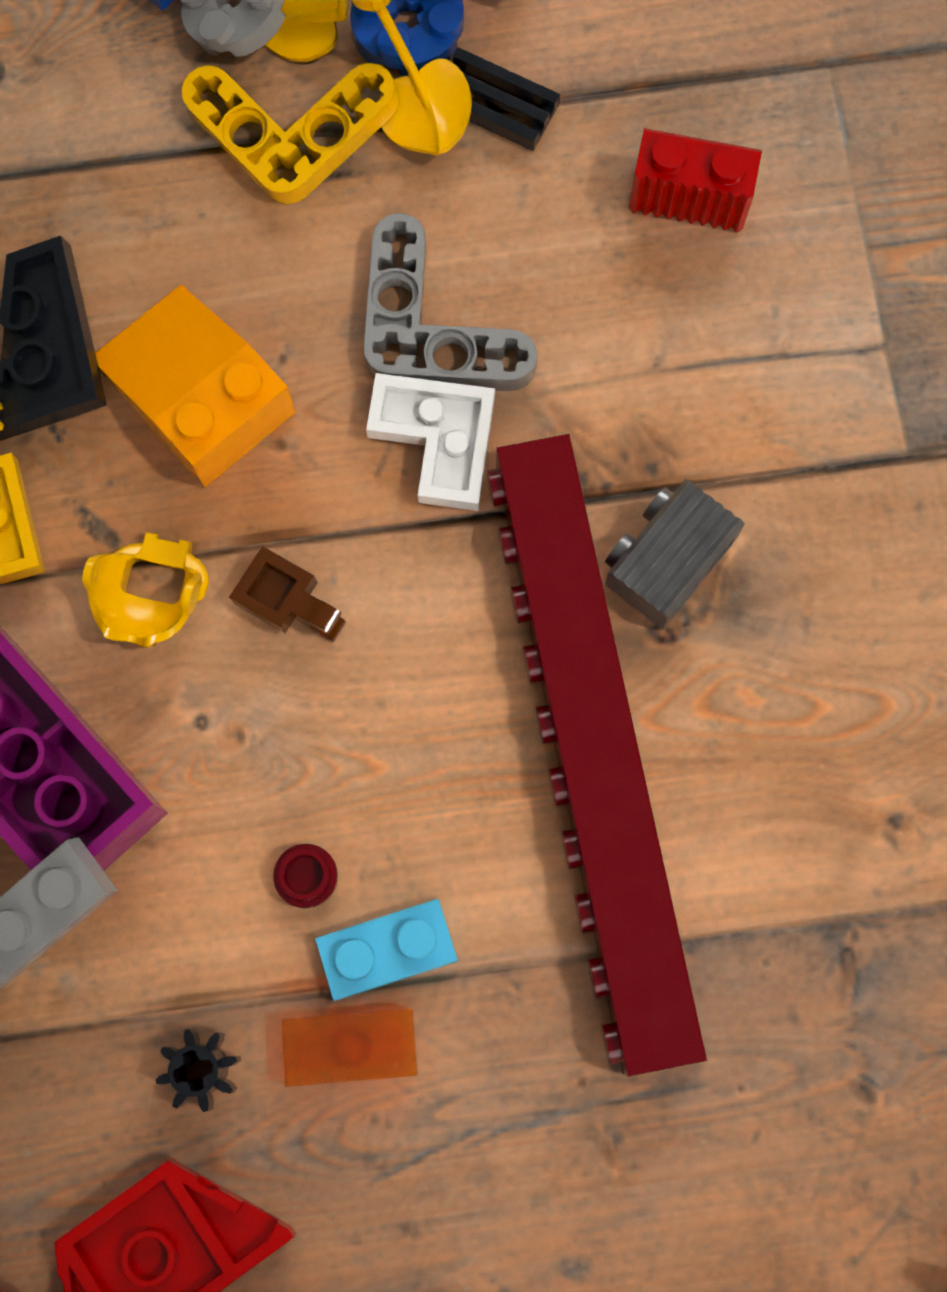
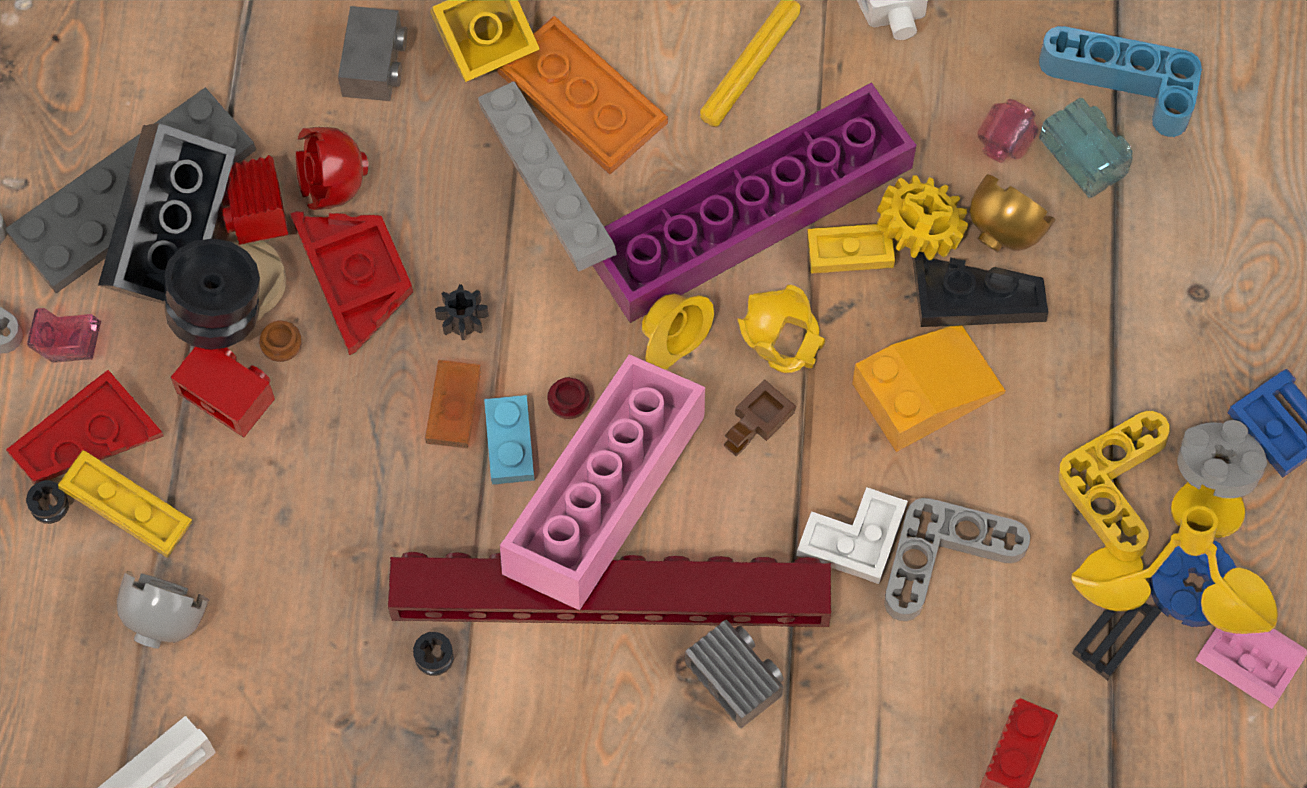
camera: 100 degrees right, 10 degrees down
(169, 742) = (676, 327): none -> yellow piece
(450, 778) = (603, 482): none -> bright pink brick
(748, 1000) = (431, 639): none -> black bush

